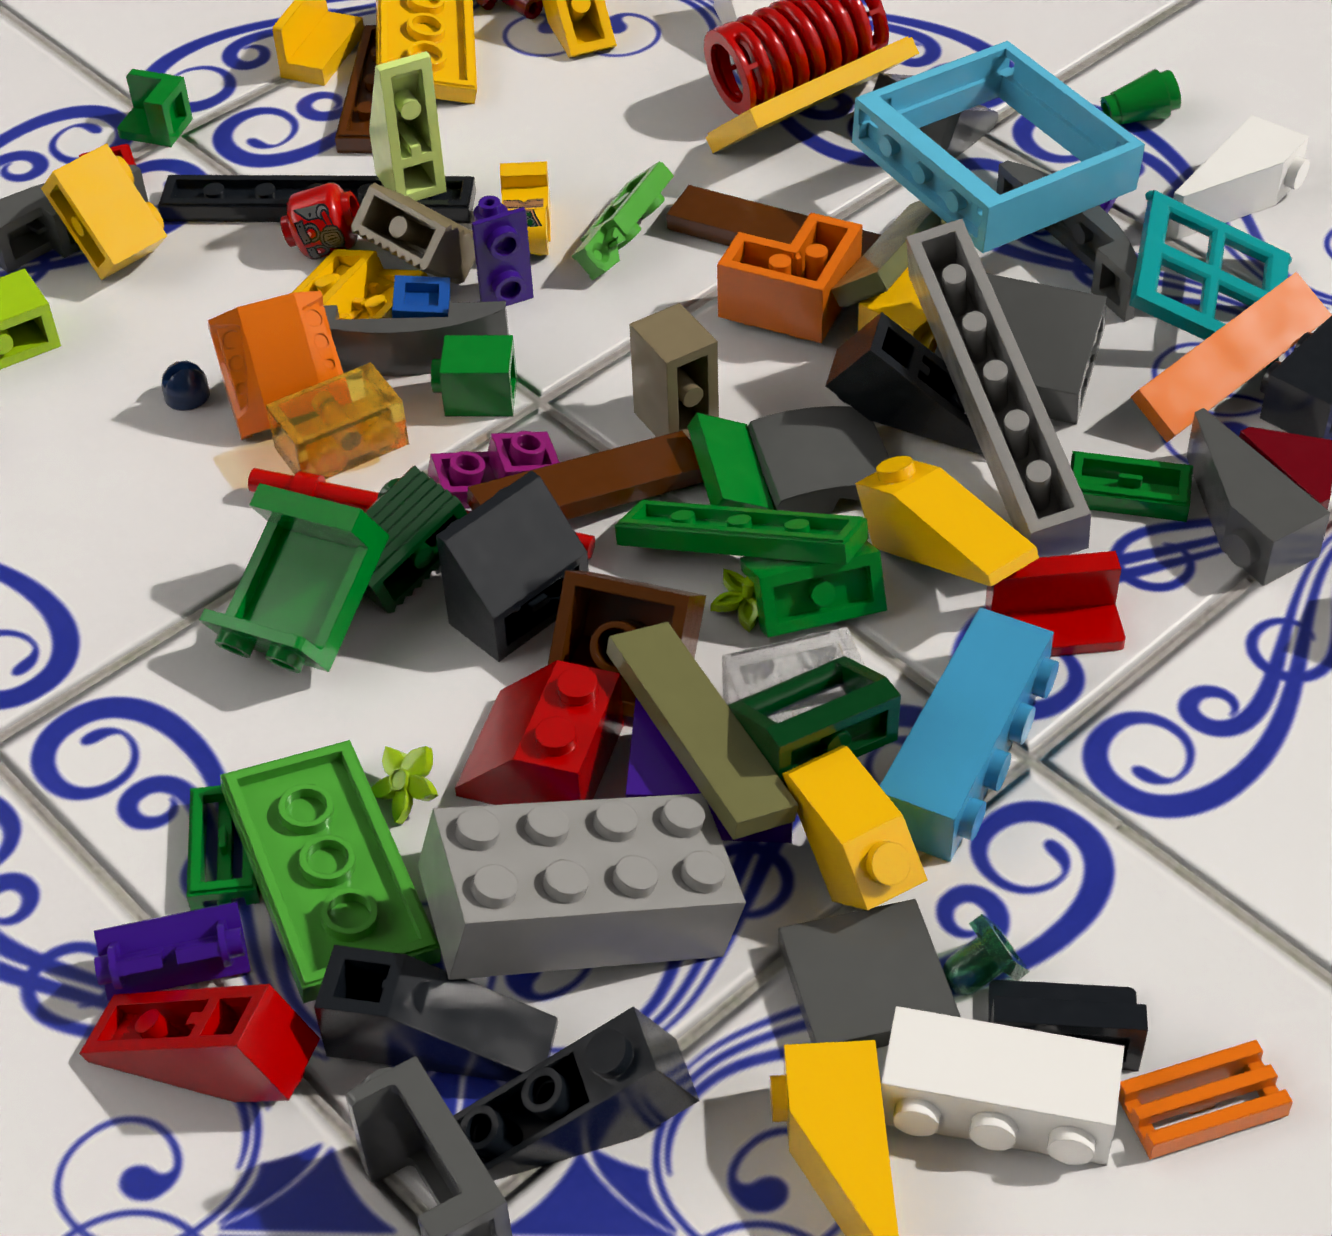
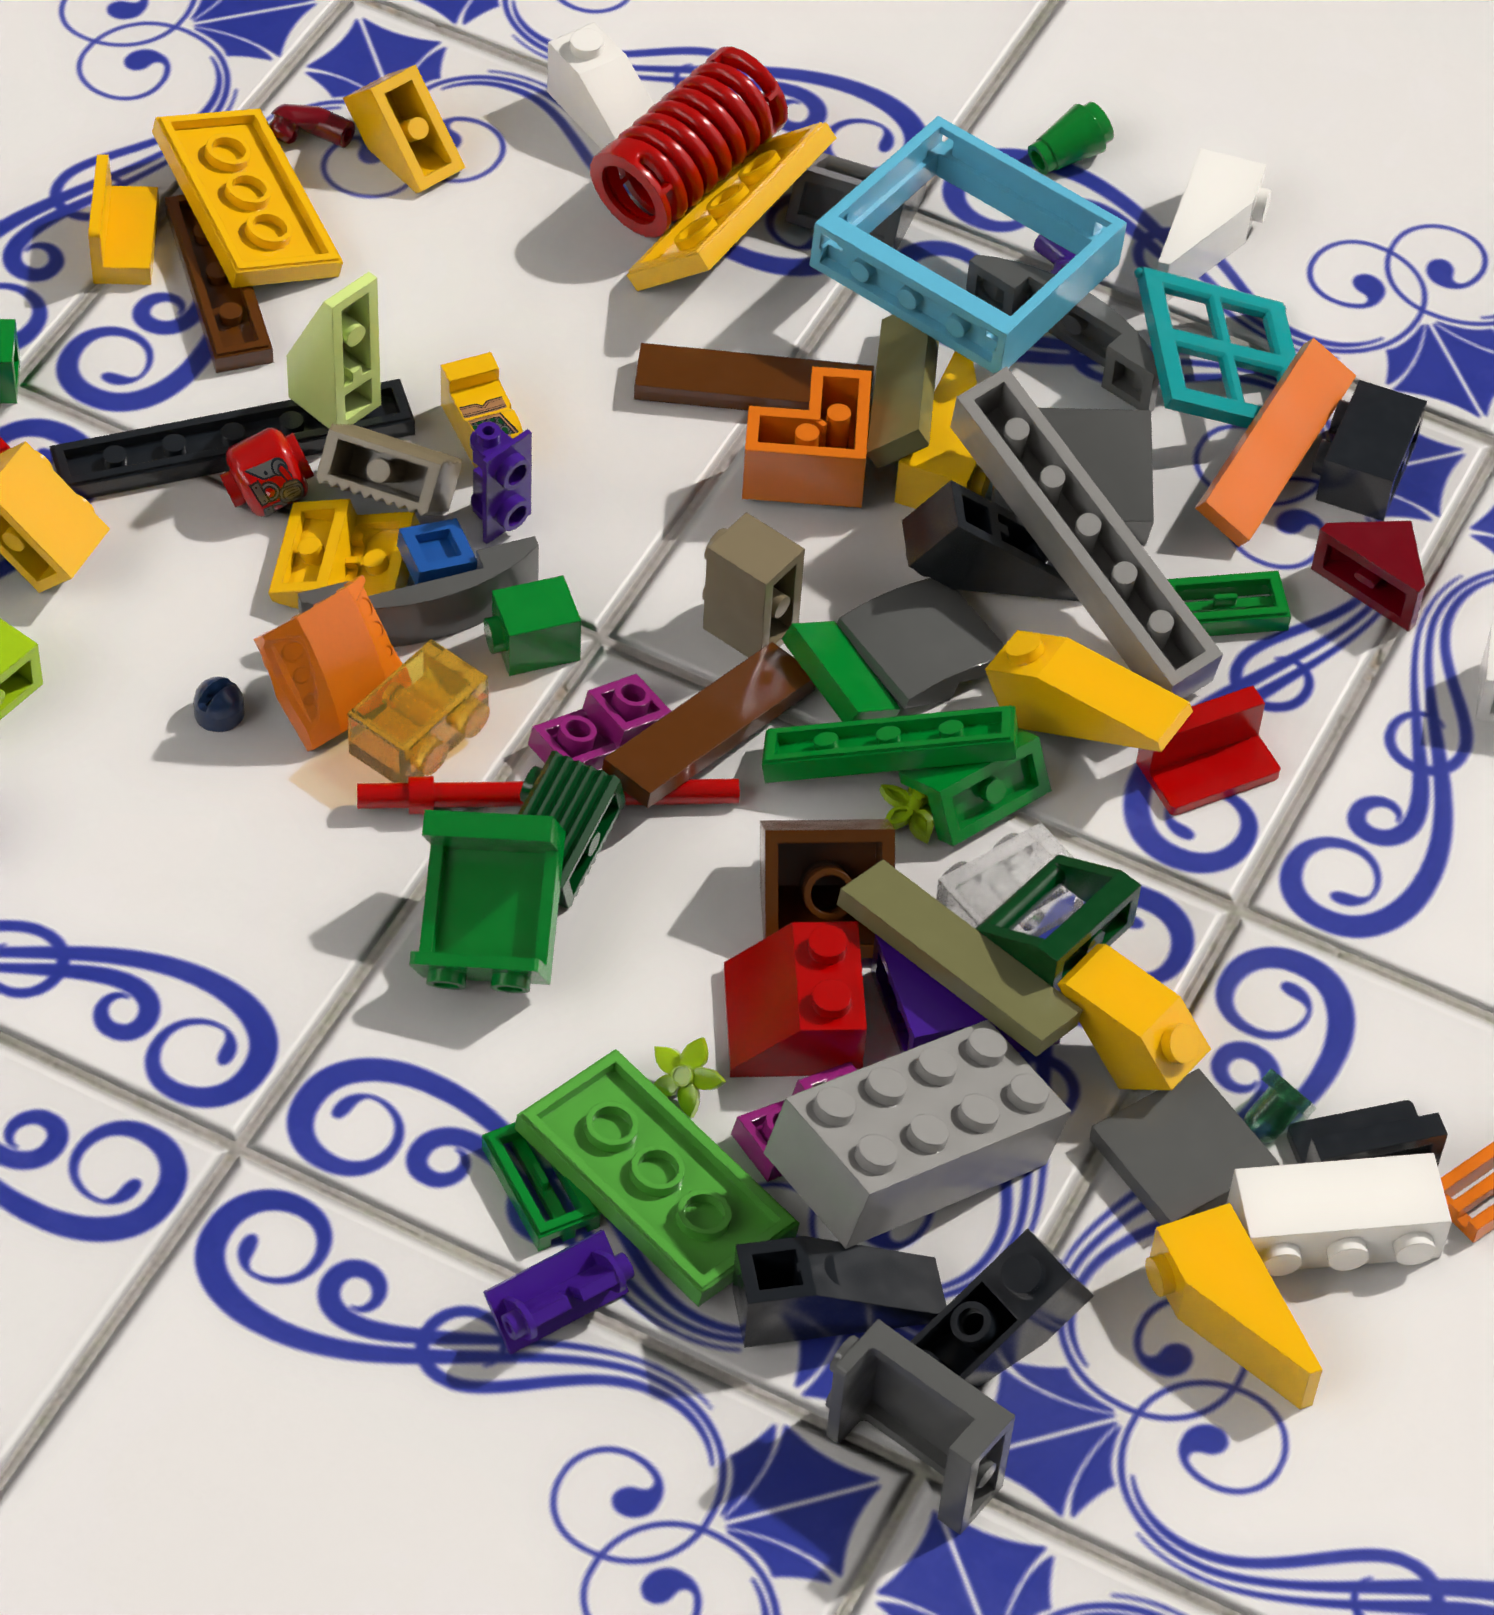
camera: 25 degrees left, 5 degrees up
(208, 1040) = (635, 1363): red slope -> none
(508, 566) = (691, 837): black slope -> none
(619, 220) = (591, 401): bright green hinge -> none
(967, 730) = (1183, 888): dark azure brick -> none
(1253, 507) = (1347, 602): dark grey slope -> none

